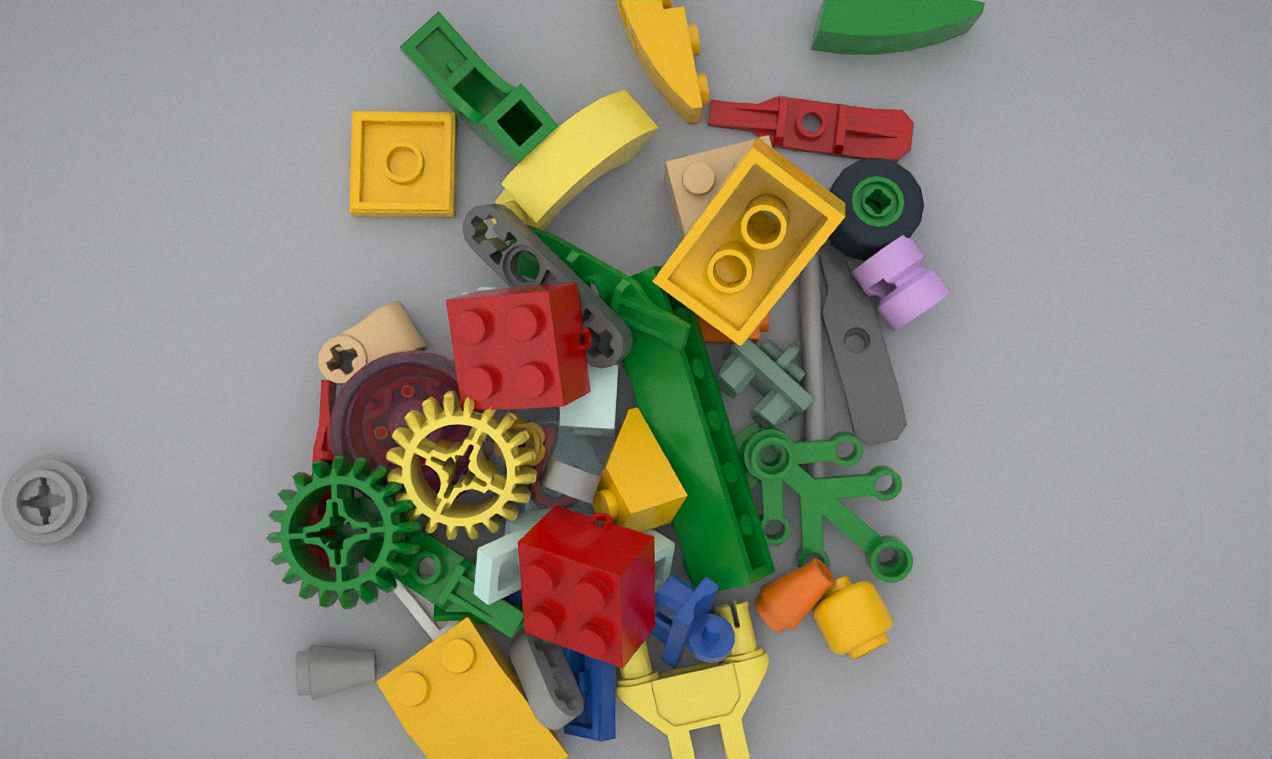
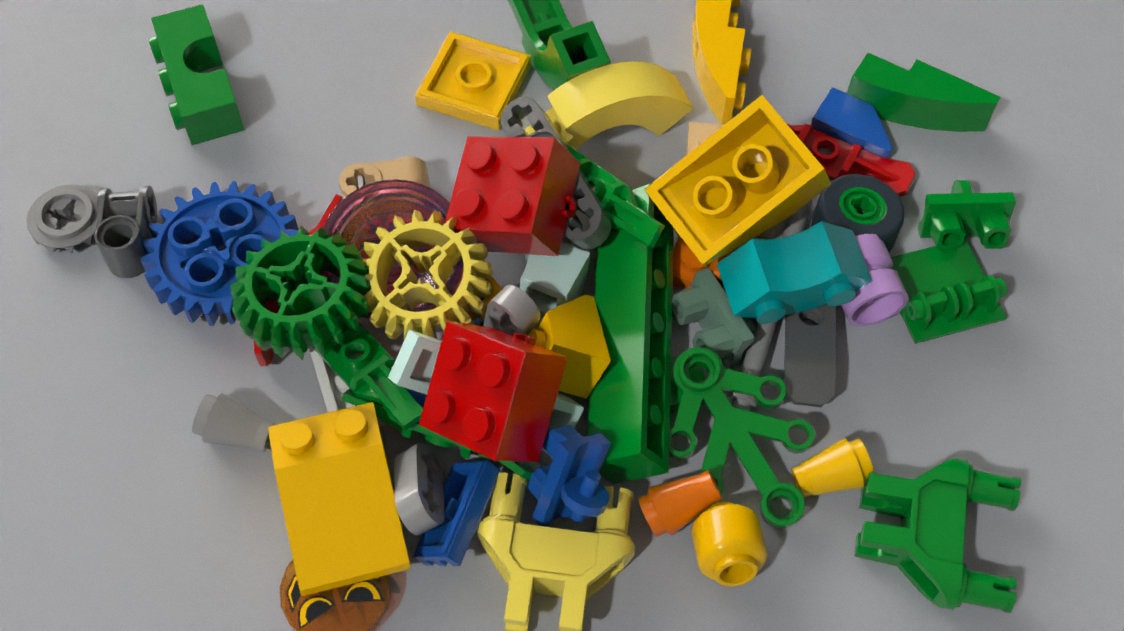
camera: 25 degrees right, 25 degrees down
(64, 243) = (203, 100): none -> green arch
(109, 485) = (123, 226): none -> dark grey piece
(202, 452) = (217, 248): none -> blue gear
(829, 76) = (852, 122): none -> blue tile
(835, 315) = (794, 273): none -> teal brick
(926, 502) = (834, 469): none -> yellow cone
(979, 154) = (967, 214): none -> green hips
(979, 255) = (947, 292): none -> green hinge
(1037, 530) = (933, 529): none -> green connector

